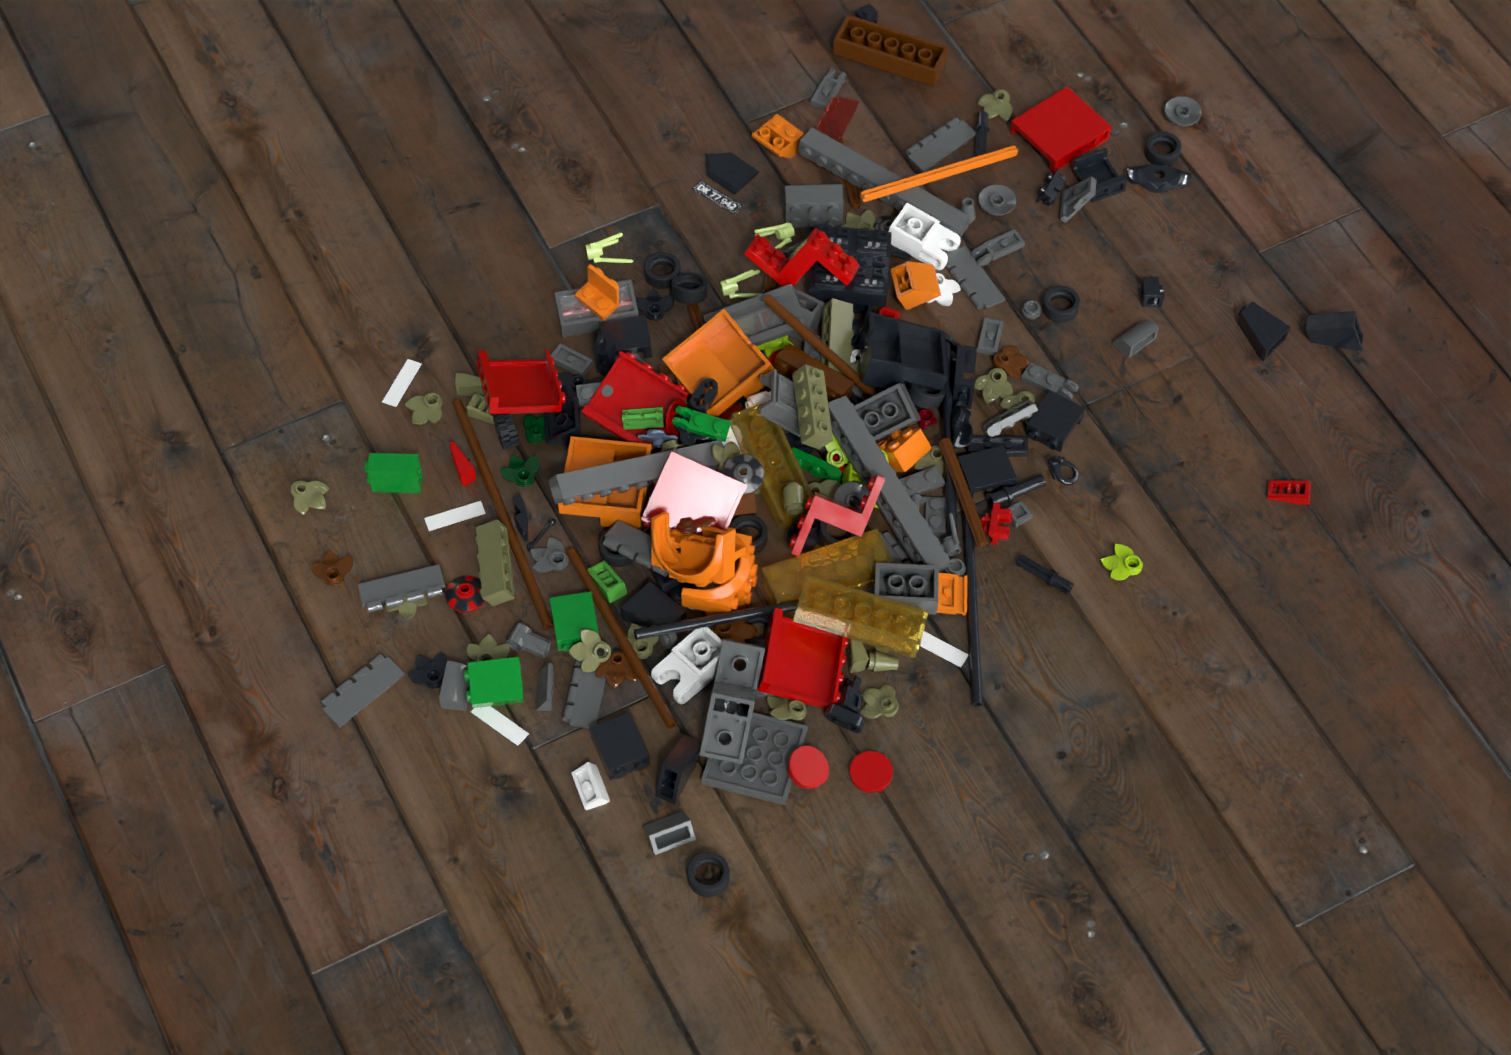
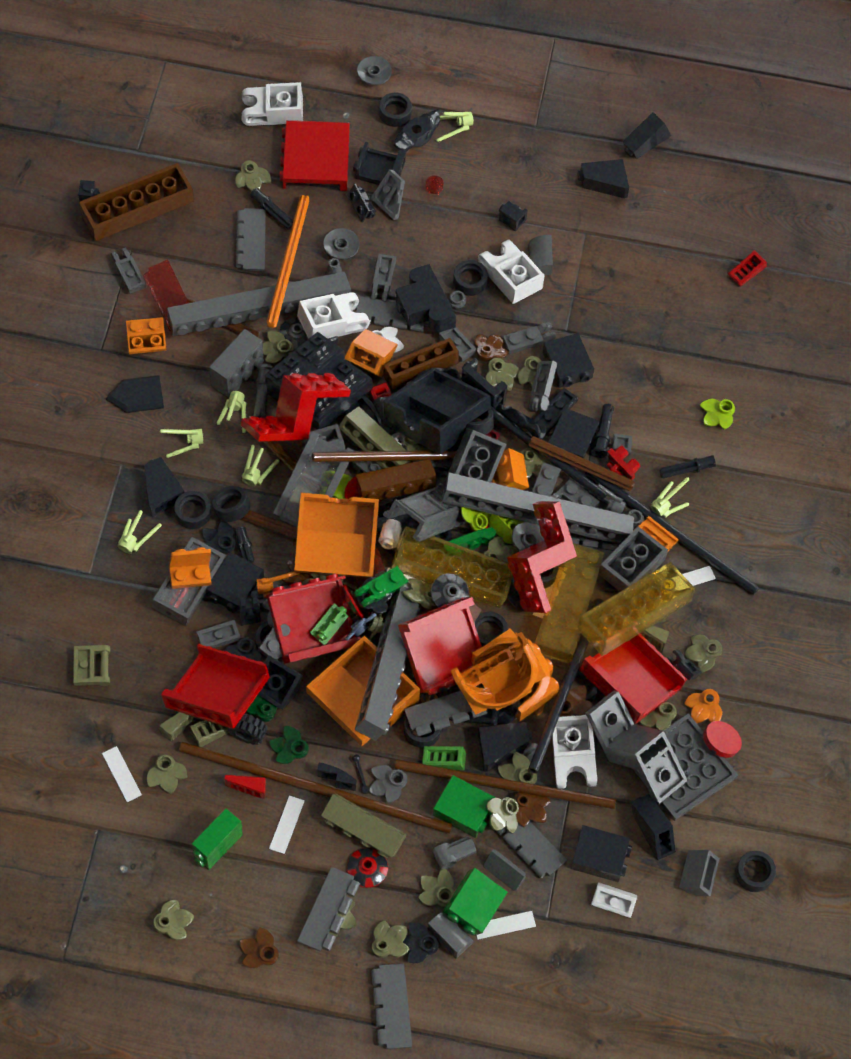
camera: 55 degrees left, 5 degrees up
(416, 649) = (392, 938): none -> olive plate
(467, 296) = (85, 665): none -> olive plate
(642, 356) = (265, 585): none -> orange plant
(660, 235) = (161, 486): none -> black slope
(665, 323) = (244, 544): none -> black axle
(689, 526) = (466, 658): reddish brown plate -> none
(700, 394) = (361, 564): black beam -> none
(717, 197) = (154, 421): black sticker -> none
(726, 228) = (194, 437): none -> yellowish green plant
(793, 498) = (501, 575): olive brick -> none
(812, 406) = (442, 501): olive brick -> none
(825, 736) = (702, 708): none -> orange plate
(844, 718) = (700, 684): black beam -> none
(871, 771) = (755, 701): red tile -> none
(881, 662) = (674, 625): olive cone -> none
(959, 327) = (402, 370): none -> reddish brown brick
(987, 579) = (661, 505): none -> yellowish green plant
(1002, 286) = (425, 301): none -> black brick
(1055, 465) = (605, 389): black piece -> none
(1076, 71) = (273, 104): none -> white brick
(1095, 327) = (513, 272): none -> white brick
(1123, 223) = (434, 184): none -> clear red tile
(1206, 198) = (463, 119): none -> yellowish green plant

